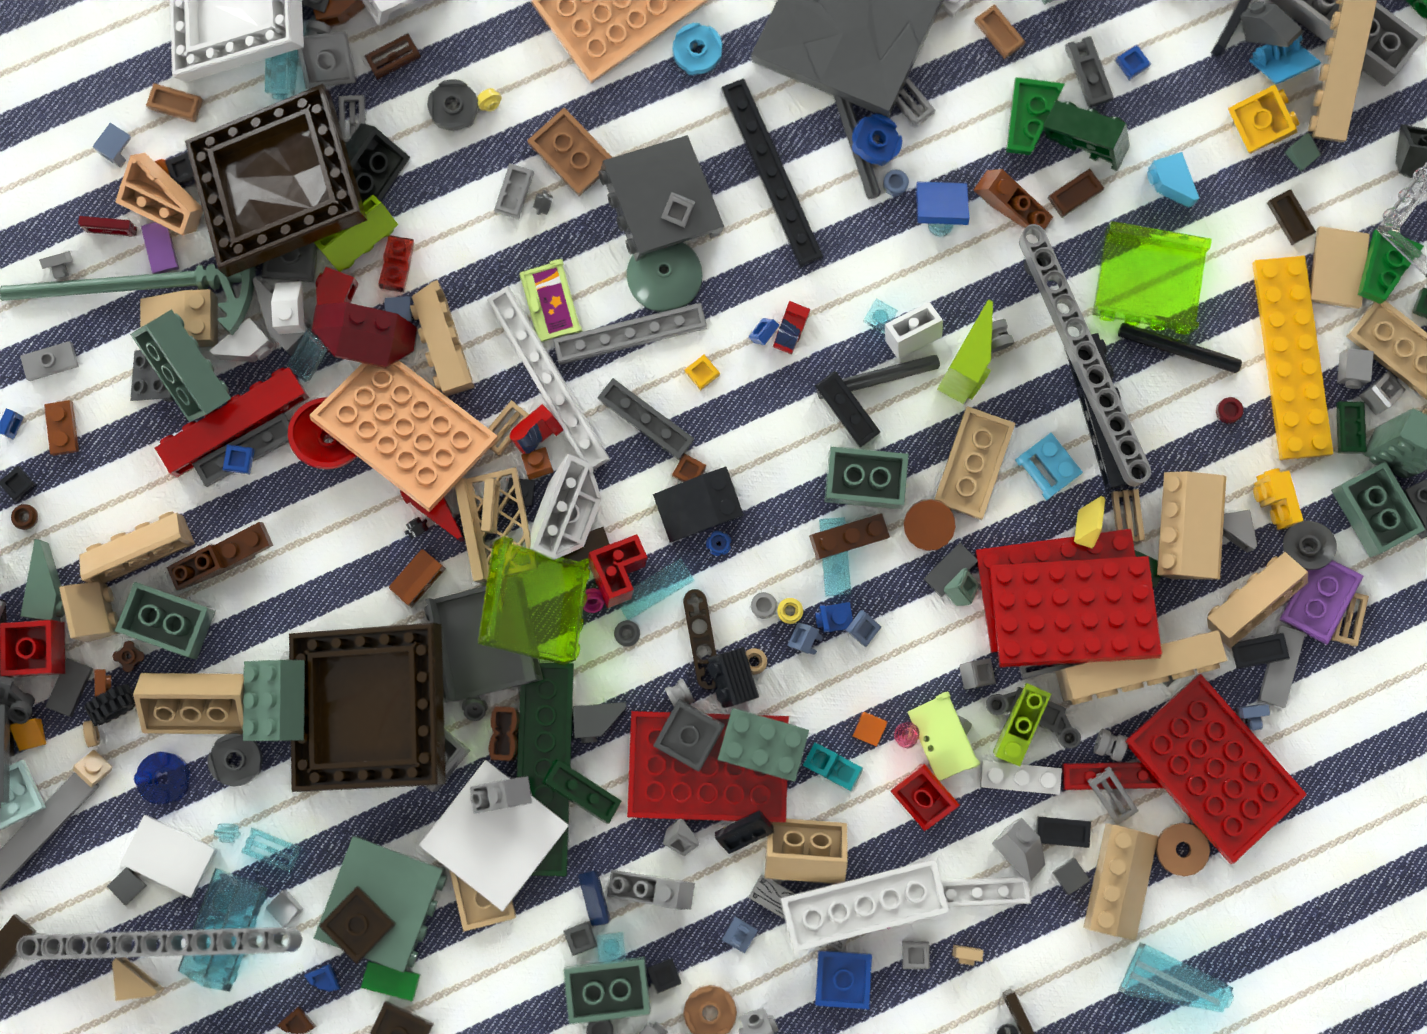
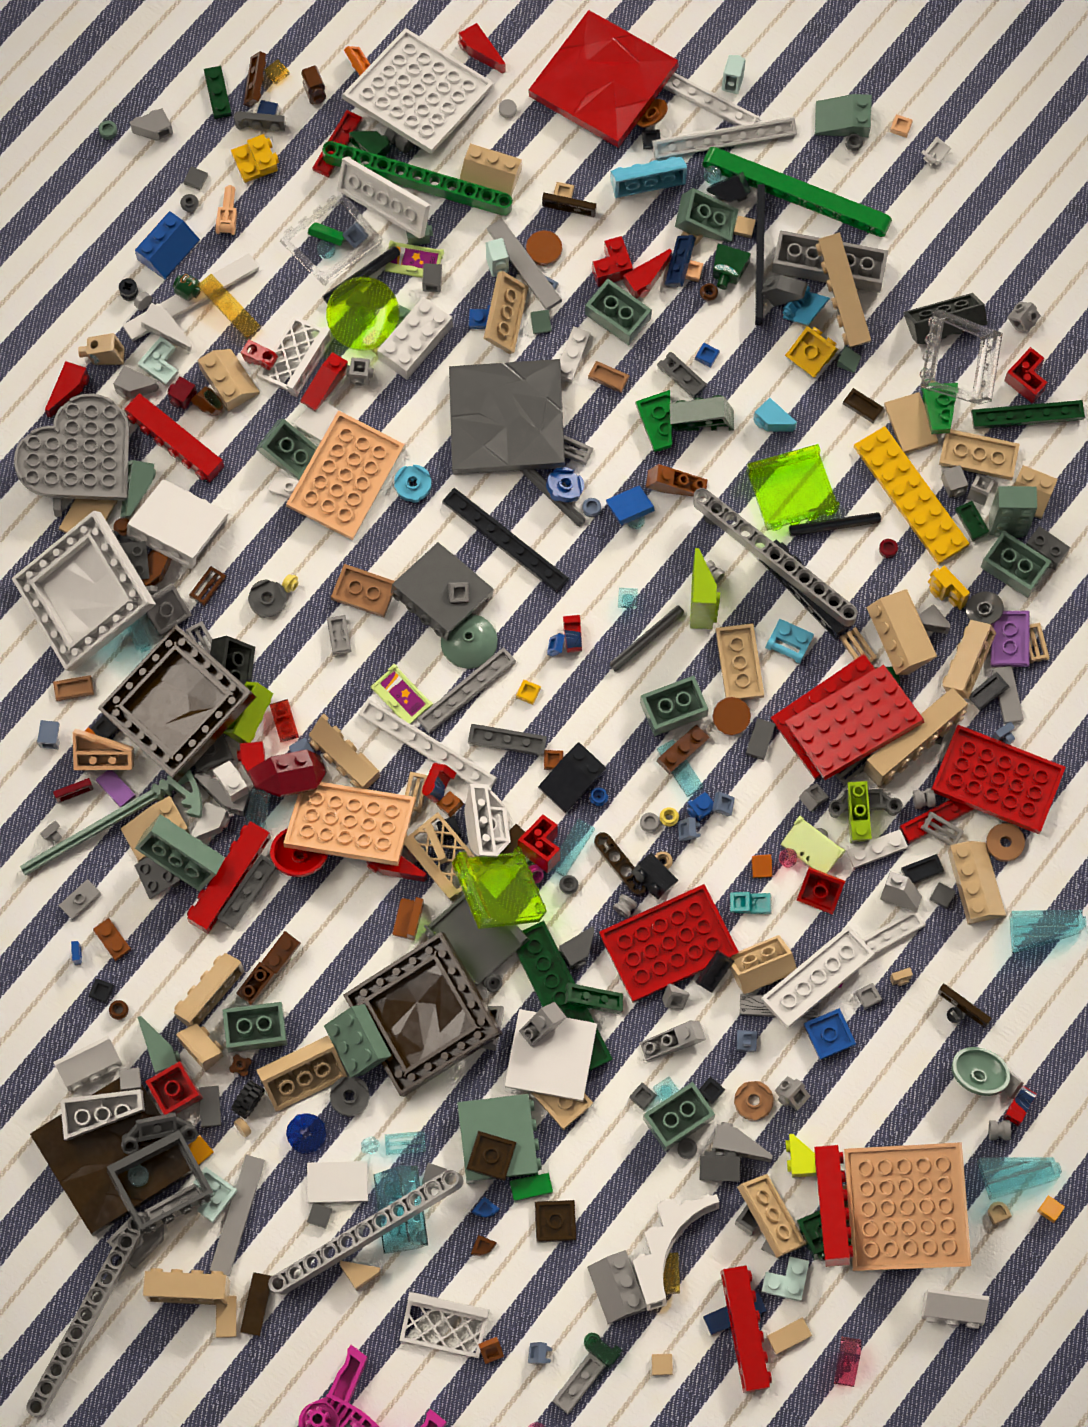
camera: 25 degrees left, 10 degrees down
(92, 768) = (255, 1149): tan plate -> none
(102, 681) = (231, 1090): dark orange plate -> none
(238, 459) = (247, 898): blue tile -> none
(416, 527) = (391, 884): black plate -> none
(505, 726) = (524, 989): reddish brown brick -> none
(543, 202) = (363, 633): dark grey plate -> none
(594, 898) = (638, 1064): dark blue slope -> none
(689, 735) = (645, 926): dark grey tile -> none
(763, 744) = (697, 907): sand green brick -> none
(847, 408) = (638, 668): black tile -> none
(913, 330) = (655, 596): white brick -> none
(962, 588) = (774, 746): sand green slope -> none
(1075, 193) = (714, 457): reddish brown tile -> none
(1090, 523) = (835, 662): light yellow slope -> none

